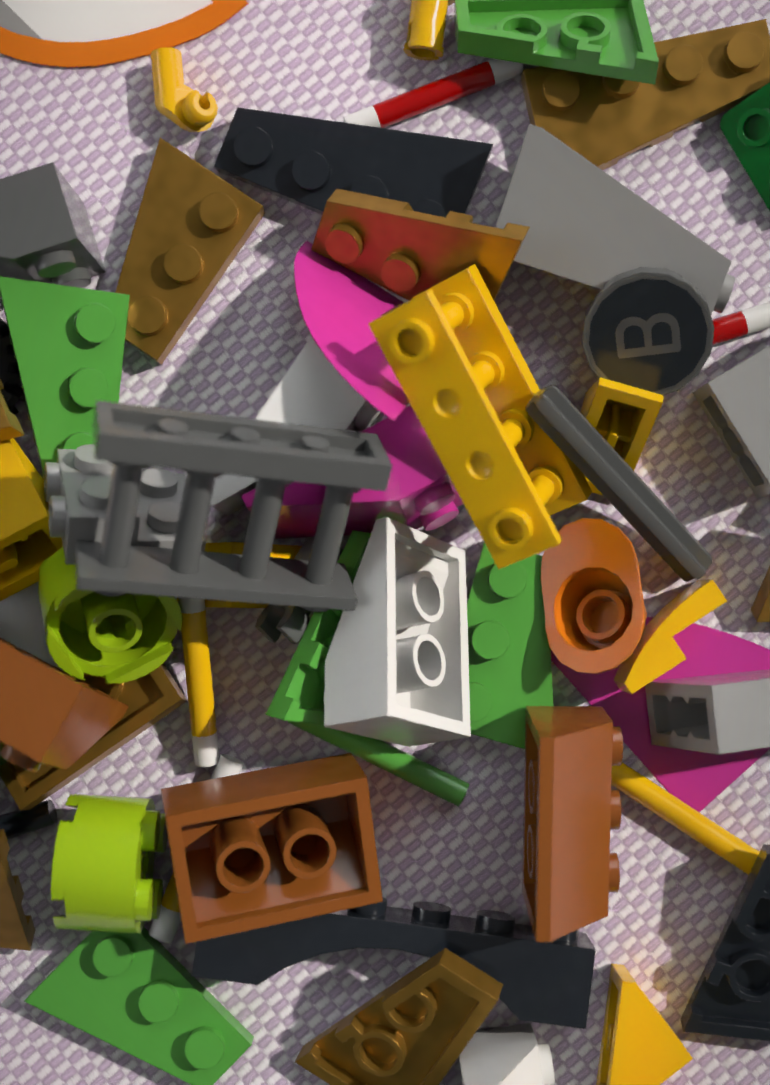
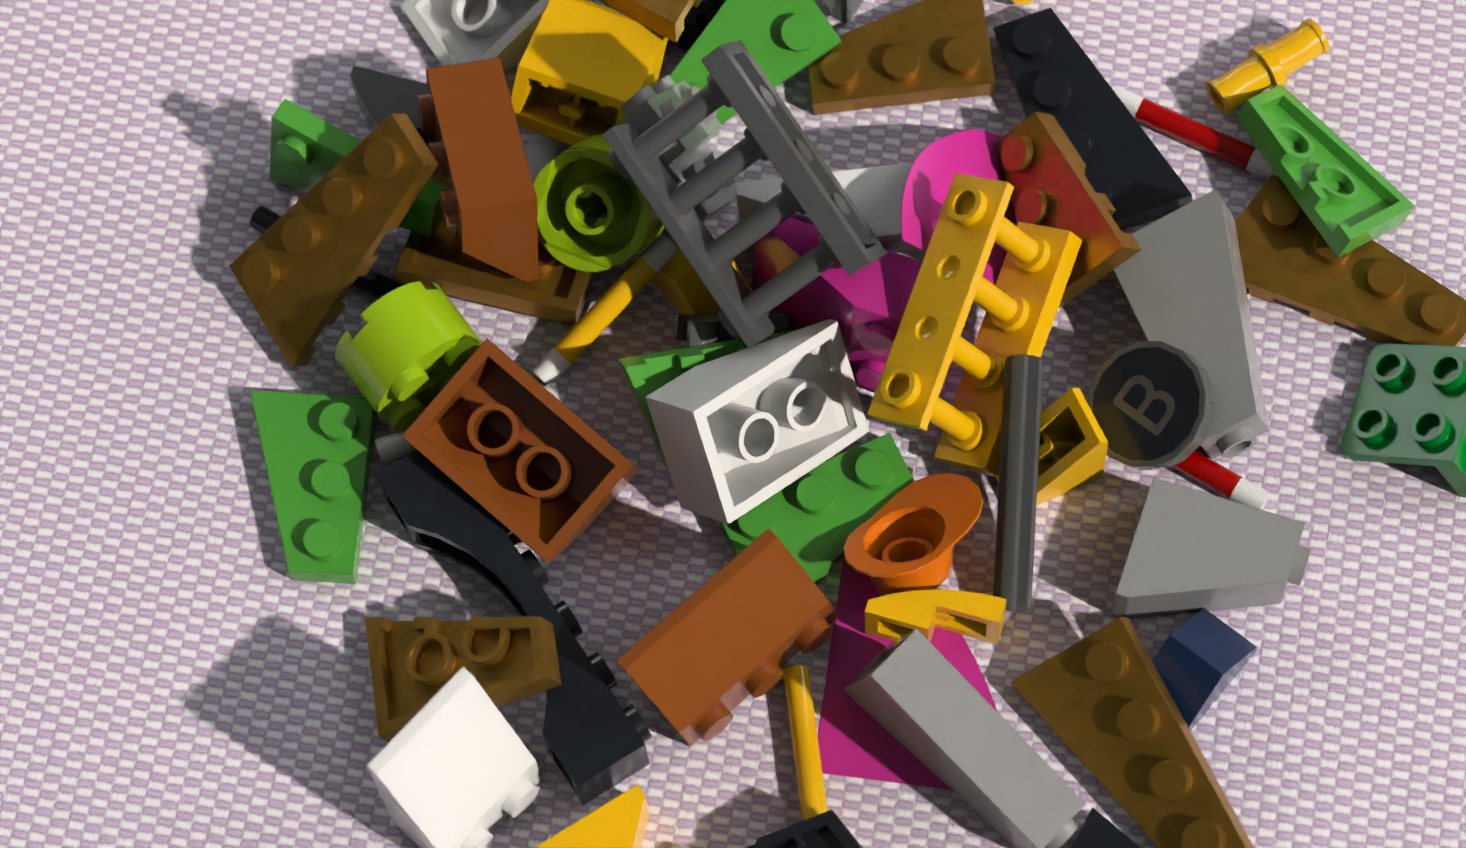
camera: 55 degrees right, 20 degrees down
(393, 761) = (657, 498): bright green bar -> none

